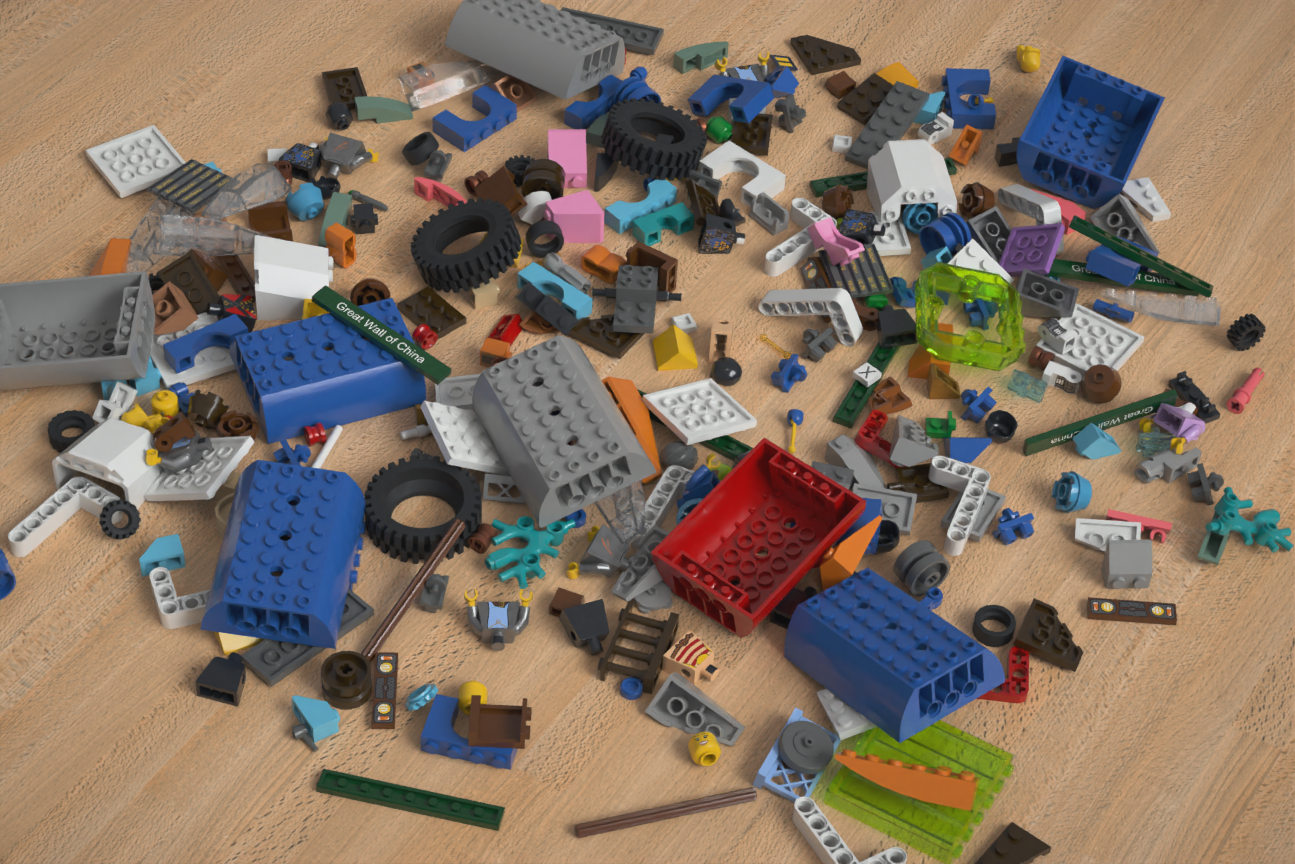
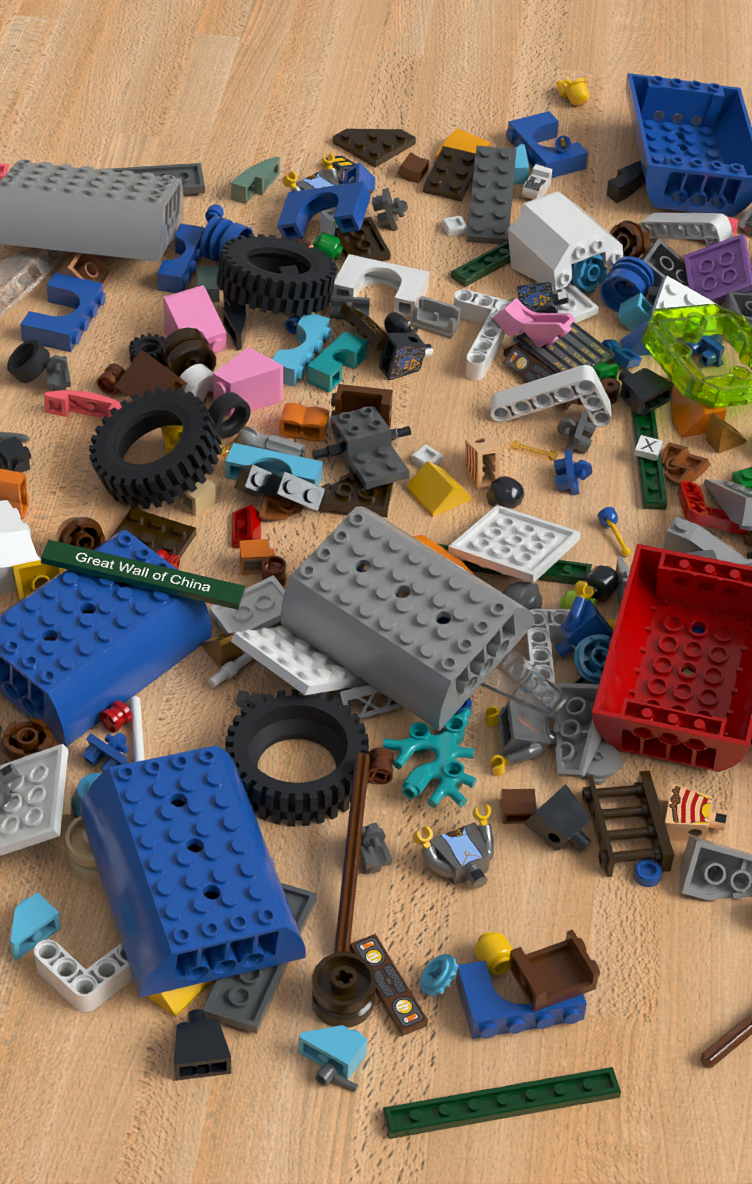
camera: 25 degrees left, 0 degrees up
(837, 201) = (499, 282): reddish brown cone -> none
(966, 145) = (580, 187): orange slope -> none

